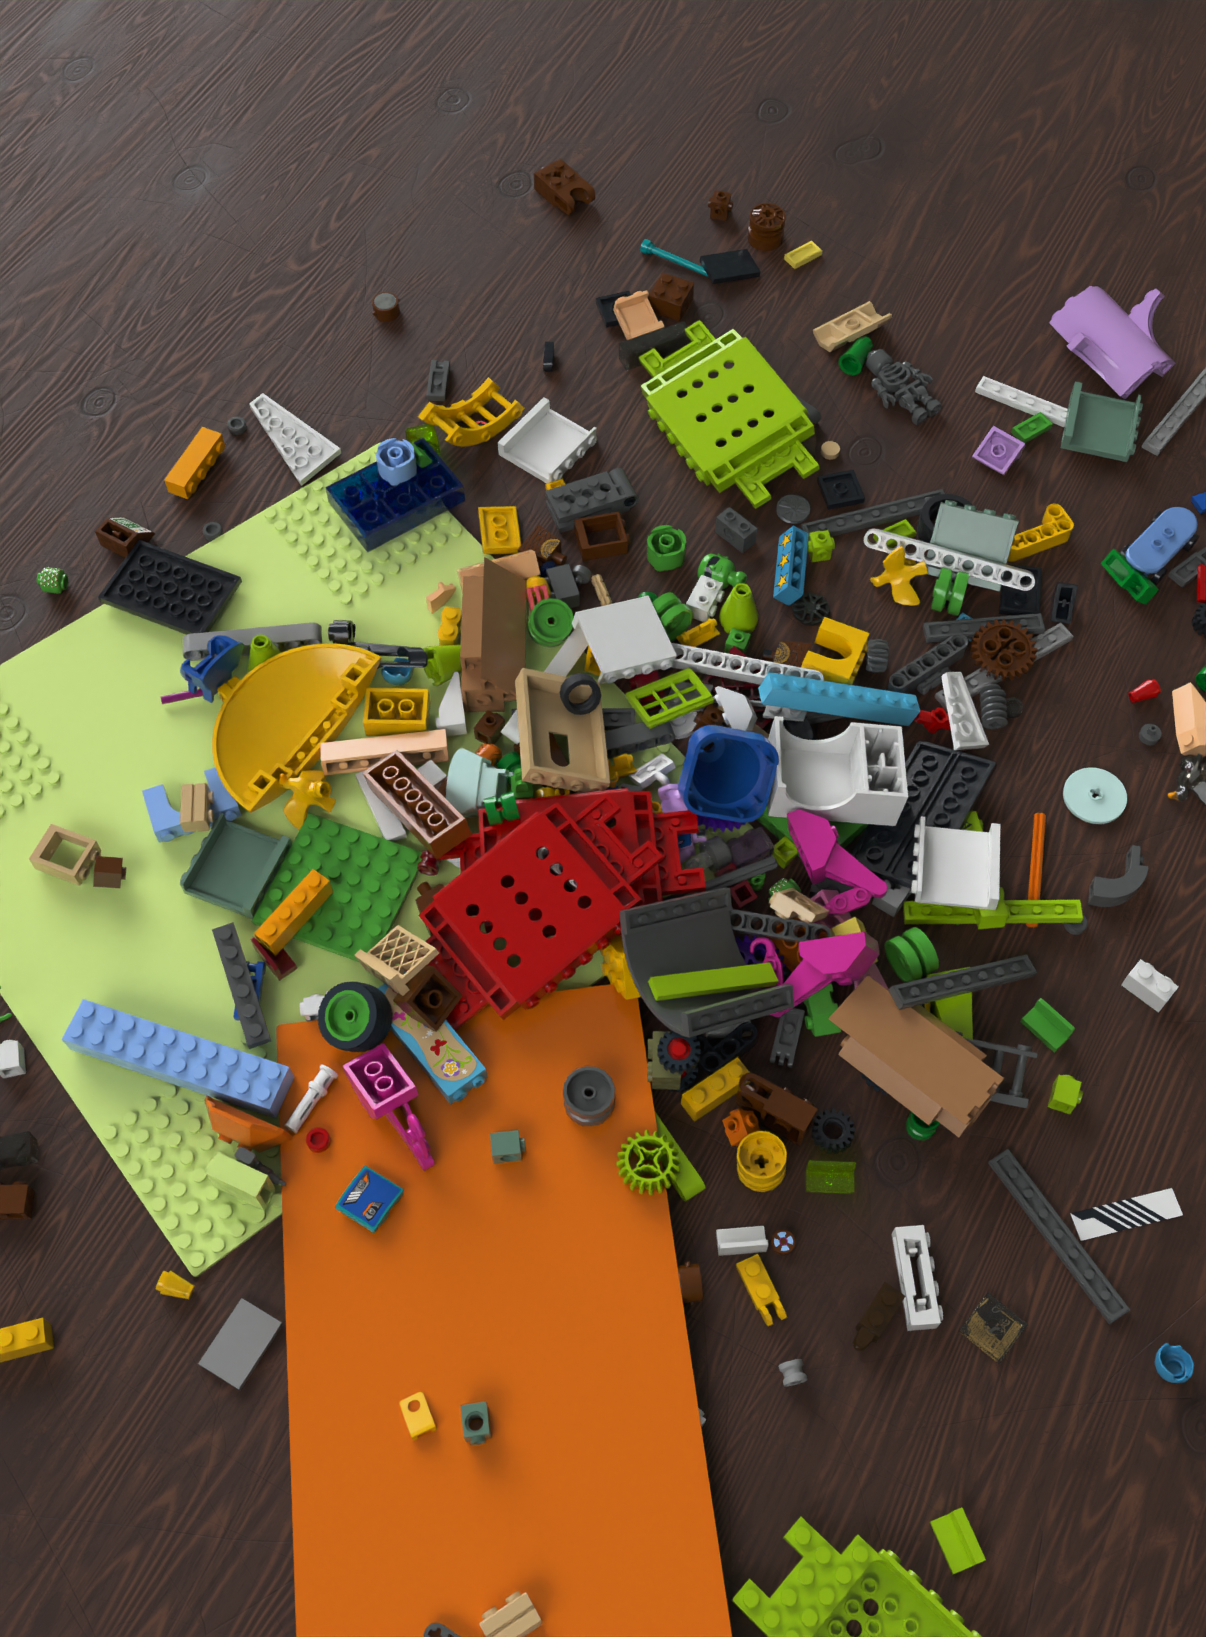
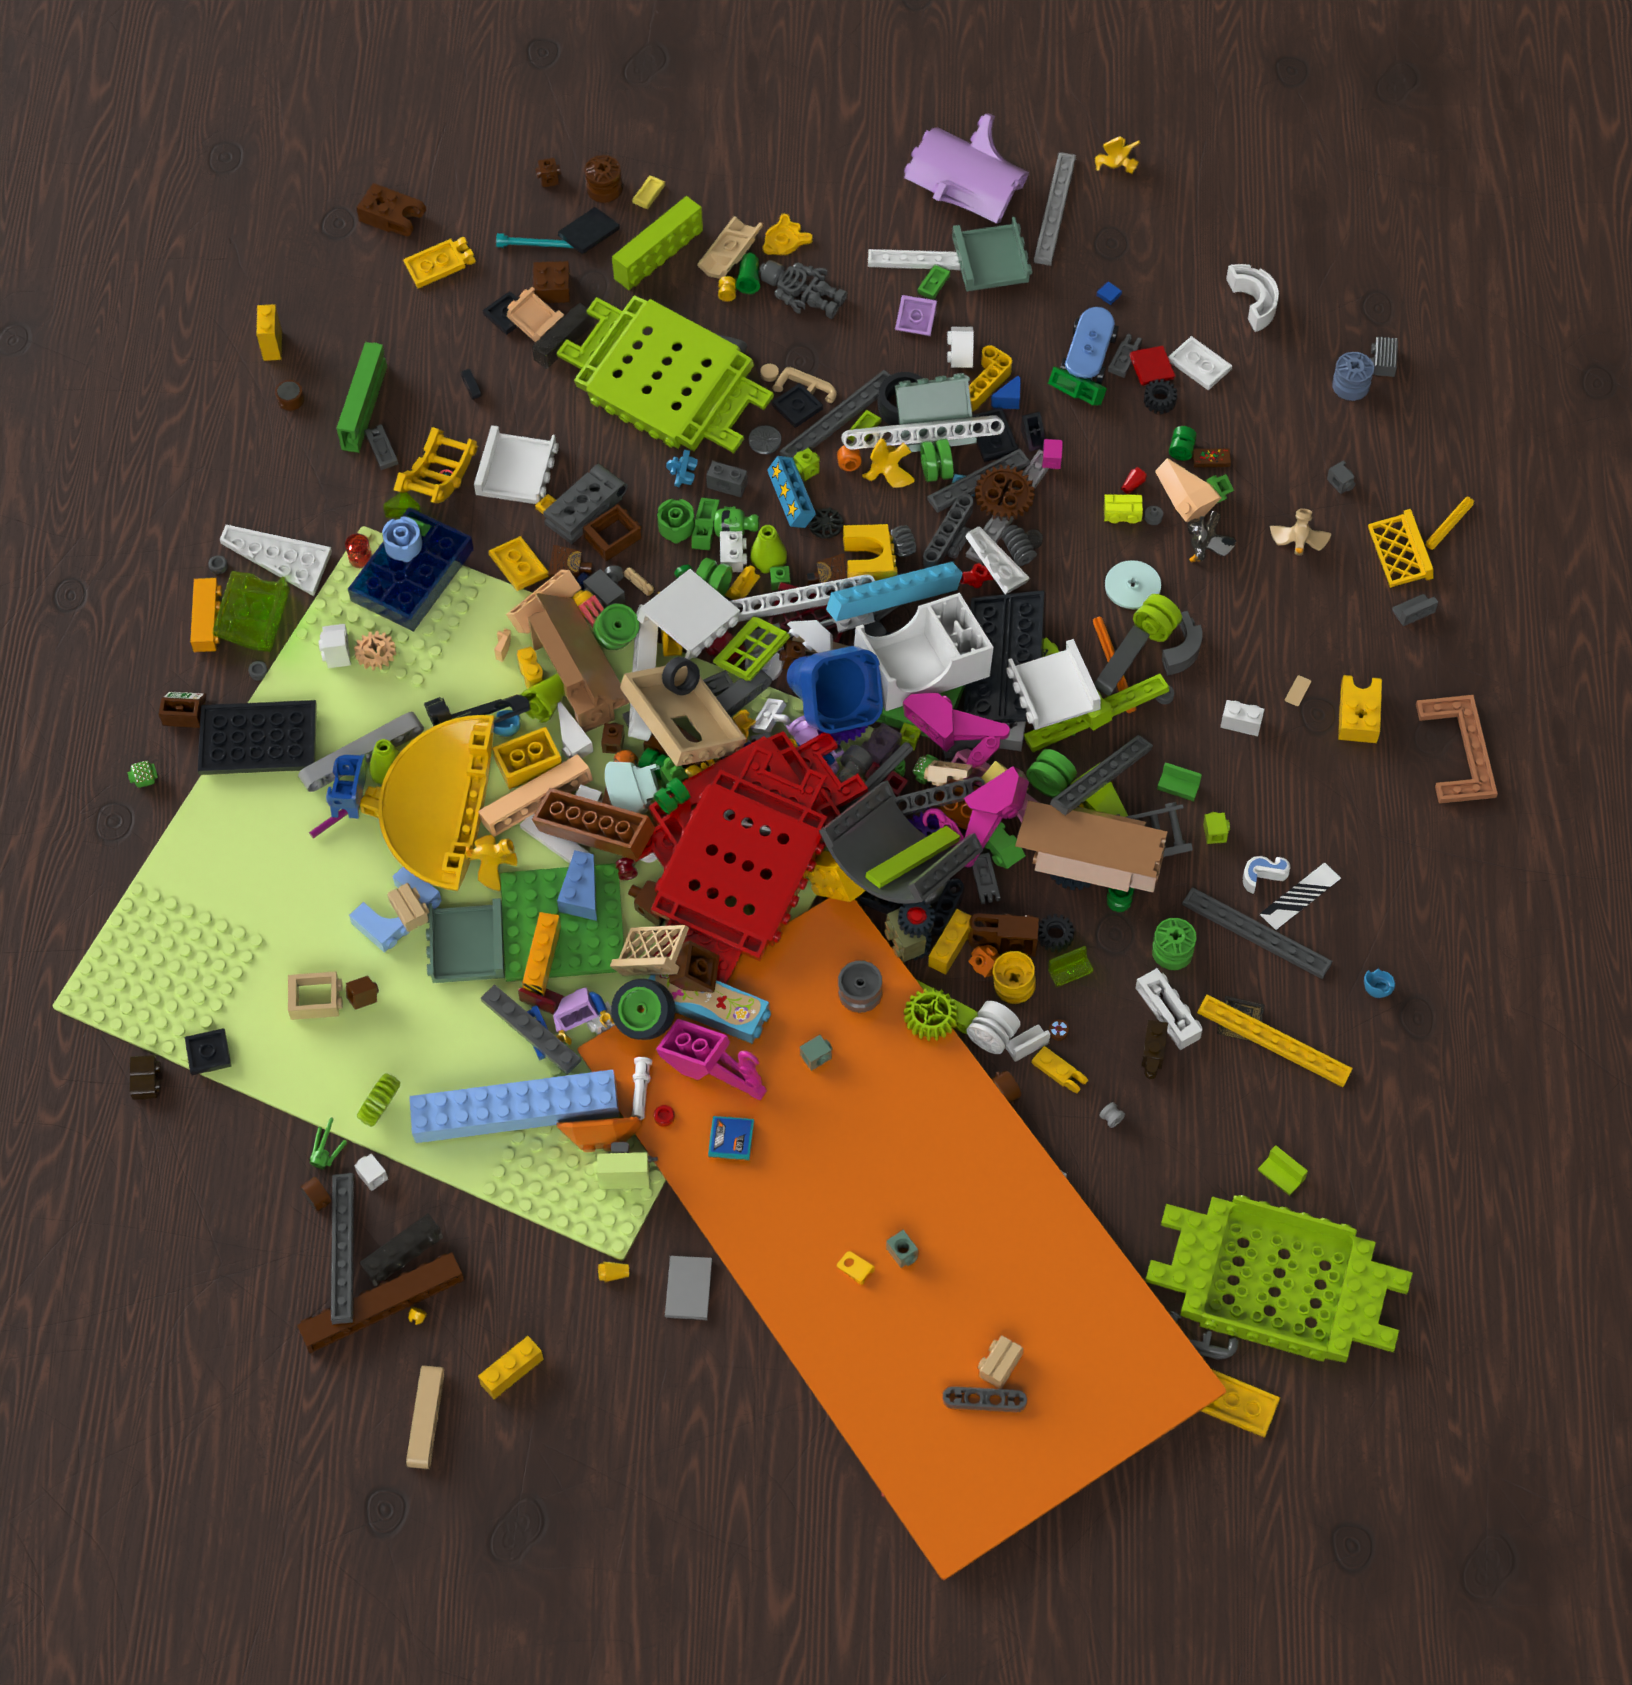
camera: 25 degrees left, 0 degrees up
(52, 988) = (378, 1099): none -> lime gear
(236, 475) = (251, 611): none -> clear neon green piece
(287, 534) = (335, 646): none -> white brick
(295, 985) = (578, 1009): none -> lavender torso
(321, 554) = (366, 654): none -> light nougat gear
(358, 456) = (358, 550): none -> clear red wheel
(369, 860) = (579, 887): none -> medium blue wedge
(396, 246) = (269, 332): none -> yellow brick
(443, 329) = (361, 397): none -> bright green brick
(582, 245) = (439, 261): none -> yellow tile
(686, 570) = (704, 524): none -> bright green slope
(707, 500) = (680, 467): none -> dark azure hips
(713, 1206) = (993, 1027): none -> white wheel
(785, 297) = (657, 243): none -> lime brick
(829, 361) = (727, 288): none -> yellow wheel
(864, 557) = (848, 458): none -> orange head
(865, 473) = (807, 380): none -> tan piece
(908, 337) = (785, 237): none -> yellow tile
(949, 1216) = (1174, 953): none -> bright green wheel
(1021, 1376) = (1275, 1040): none -> yellow tile
(1028, 496) = (961, 347): none -> white brick
(1044, 868) = (1121, 660): none -> dark grey beam
(1053, 559) = (1008, 396): none -> blue slope
(1071, 631) = (1052, 454): none -> dark pink panel
(1099, 1164) = (1264, 868): none -> white animal
(1104, 840) = (1157, 617): none -> lime wheel
(1120, 714) = (1123, 508): none -> neon yellow brick

